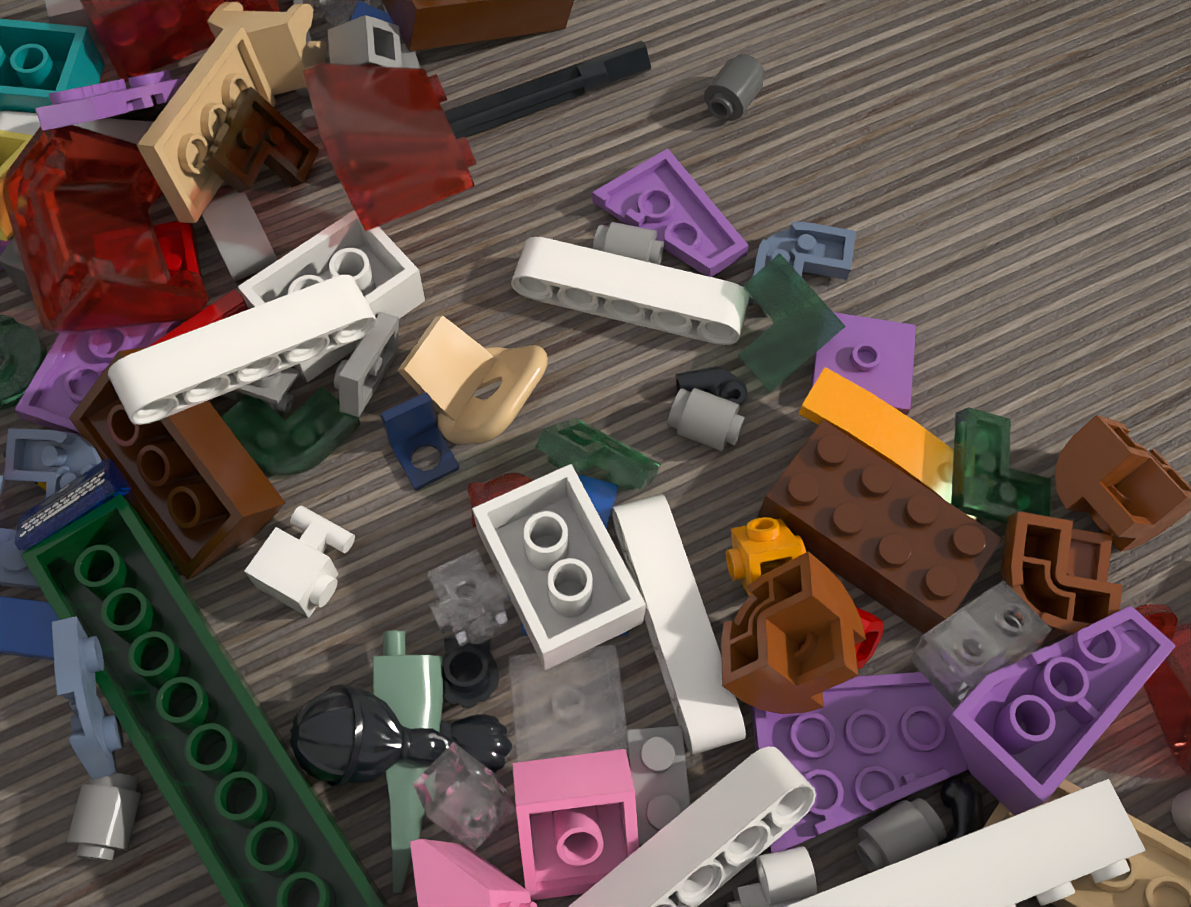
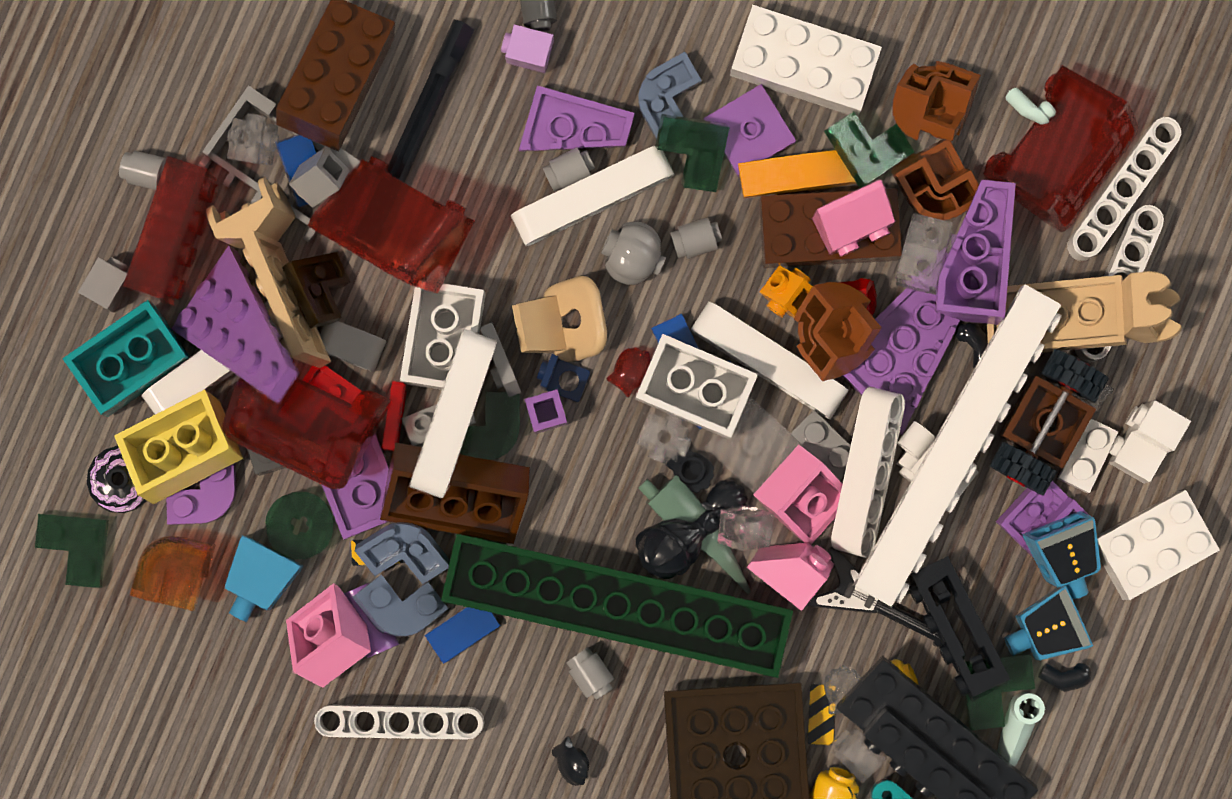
camera: 40 degrees left, 20 degrees up
(70, 503) = (434, 559): clear blue slope -> none
(93, 733) = (559, 641): sand blue plate -> none
(297, 569) = (564, 494): white brick -> none
(362, 456) = (546, 411): none -> medium lavender brick
(586, 446) = (651, 306): clear green plate -> none
(620, 378) = (633, 253): none -> light grey plant
(690, 115) = (527, 48): none -> lavender brick
(715, 381) = (683, 211): black arm -> none
(899, 834) = (952, 376): light grey brick -> none
(930, 509) = (854, 219): none -> bright pink slope
(989, 334) = (805, 61): none -> white brick

